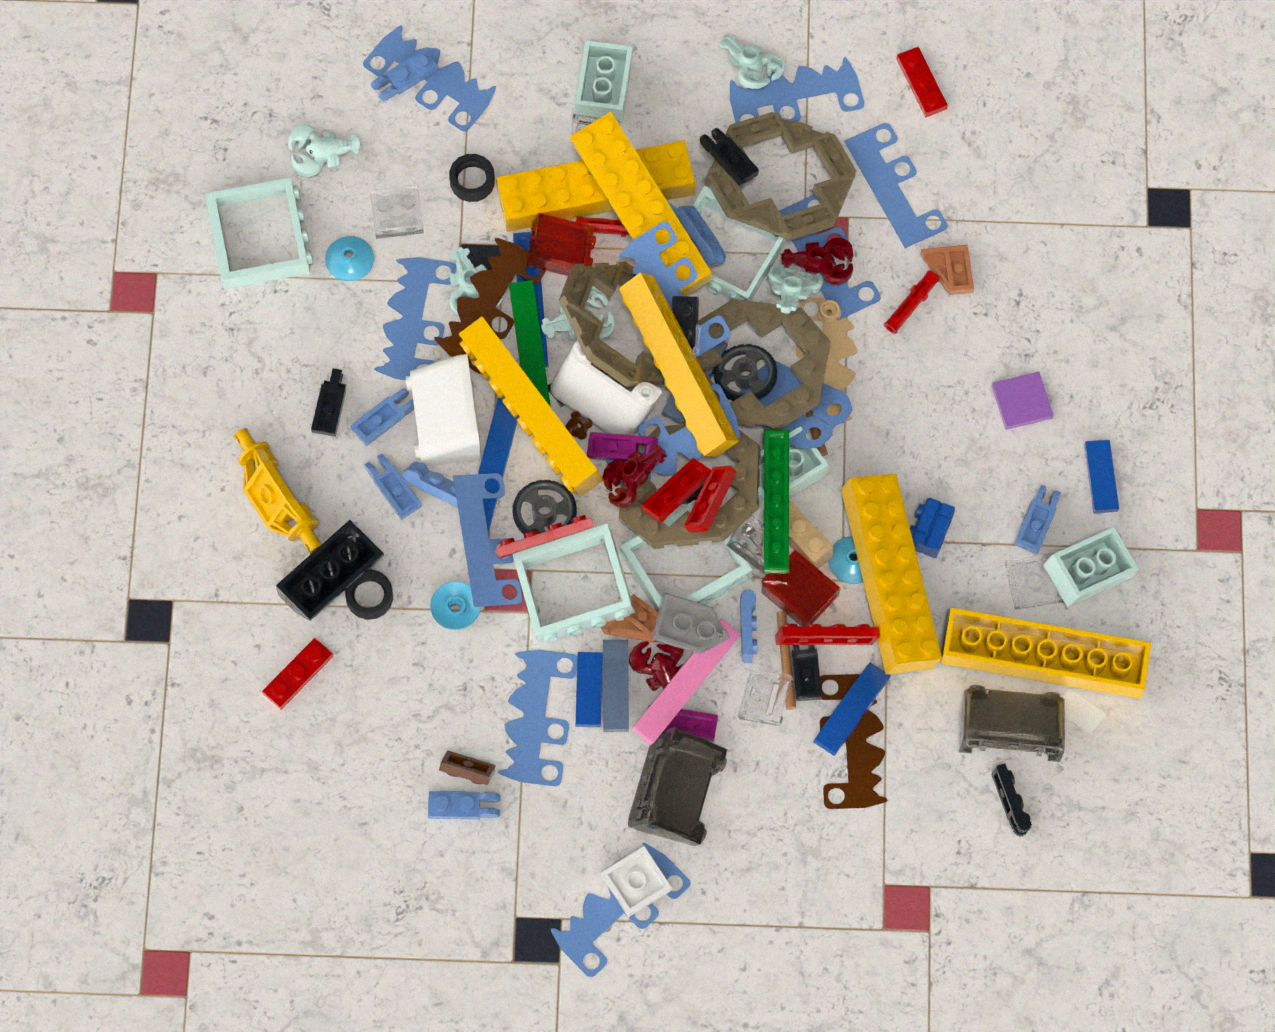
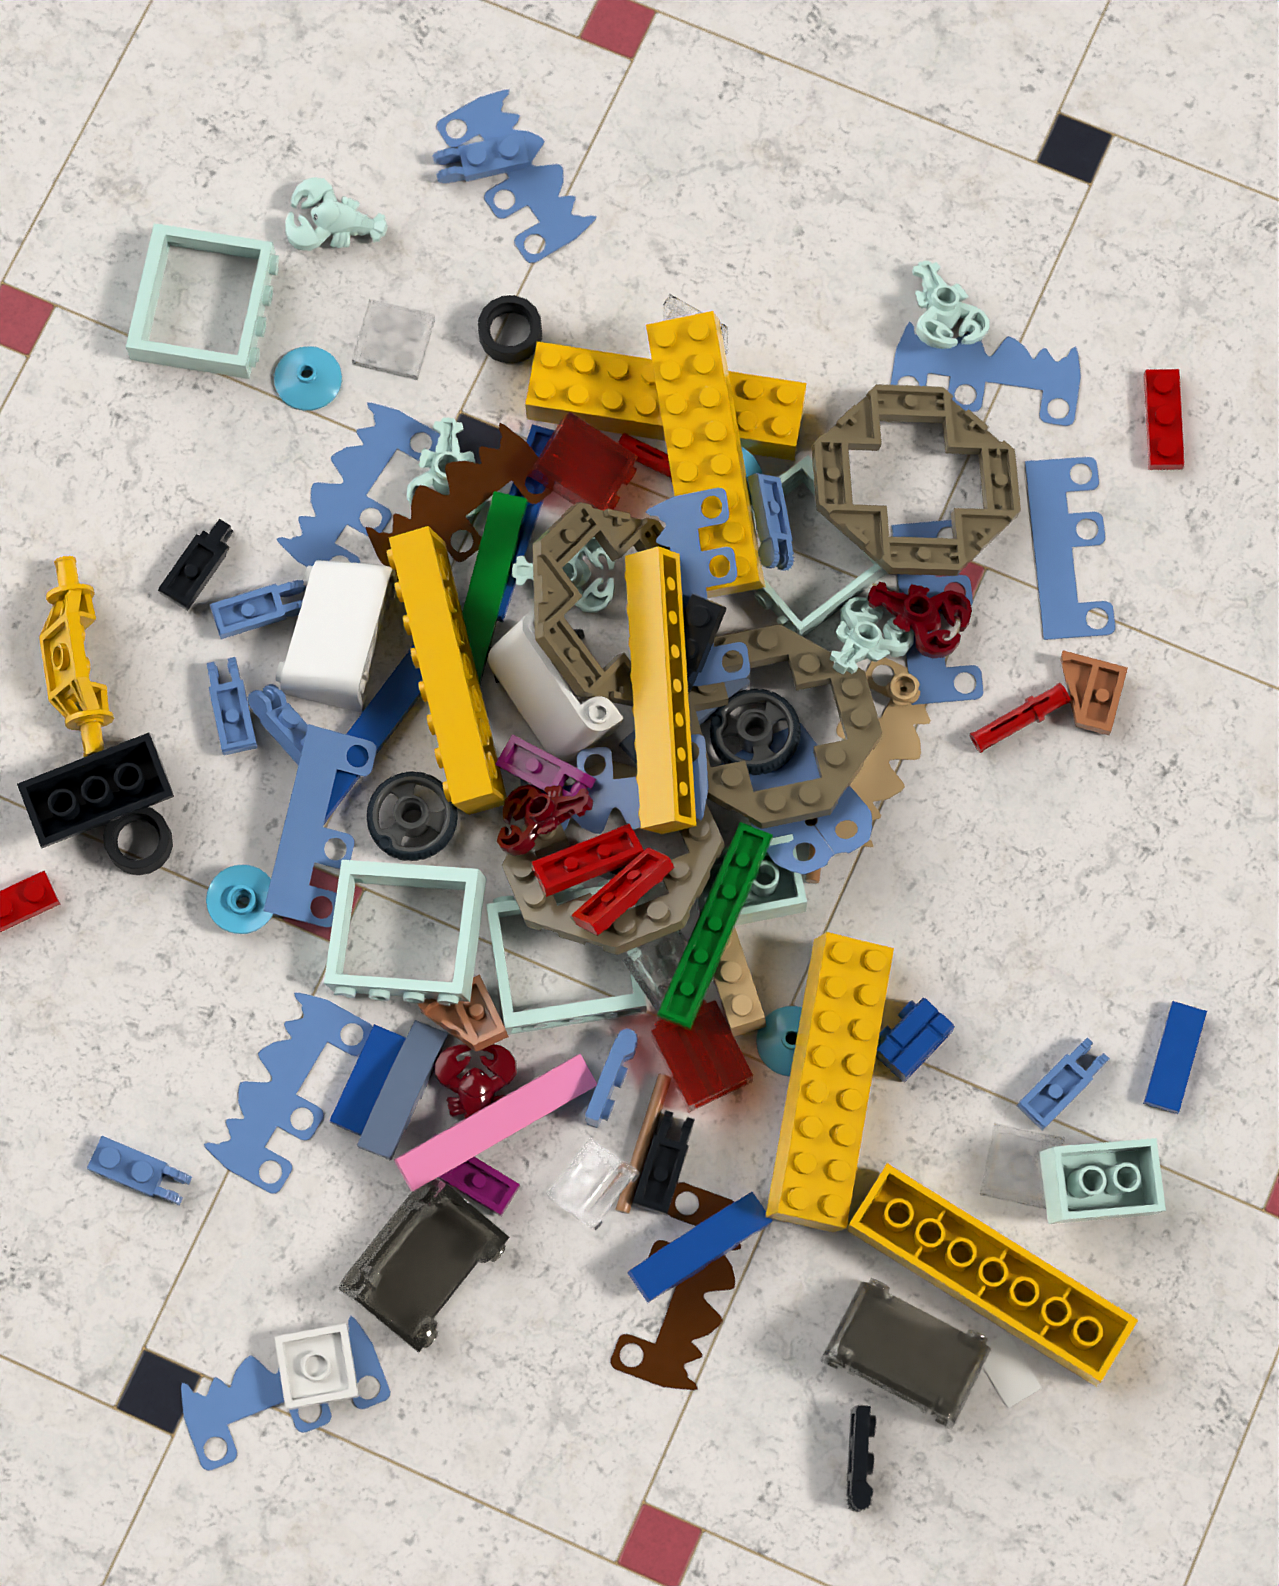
camera: 25 degrees right, 5 degrees up
(467, 767) = (164, 1124): reddish brown plate -> none
(533, 538) = (377, 852): plate -> none
(574, 430) = (499, 714): reddish brown plate -> none
(604, 79) = (736, 263): light aqua brick -> none
(688, 625) = (528, 1048): light grey tile -> none
(729, 156) = (854, 430): black hinge -> none
(835, 635) = (722, 1138): red plate -> none
(1022, 400) = (1112, 910): medium lavender tile -> none

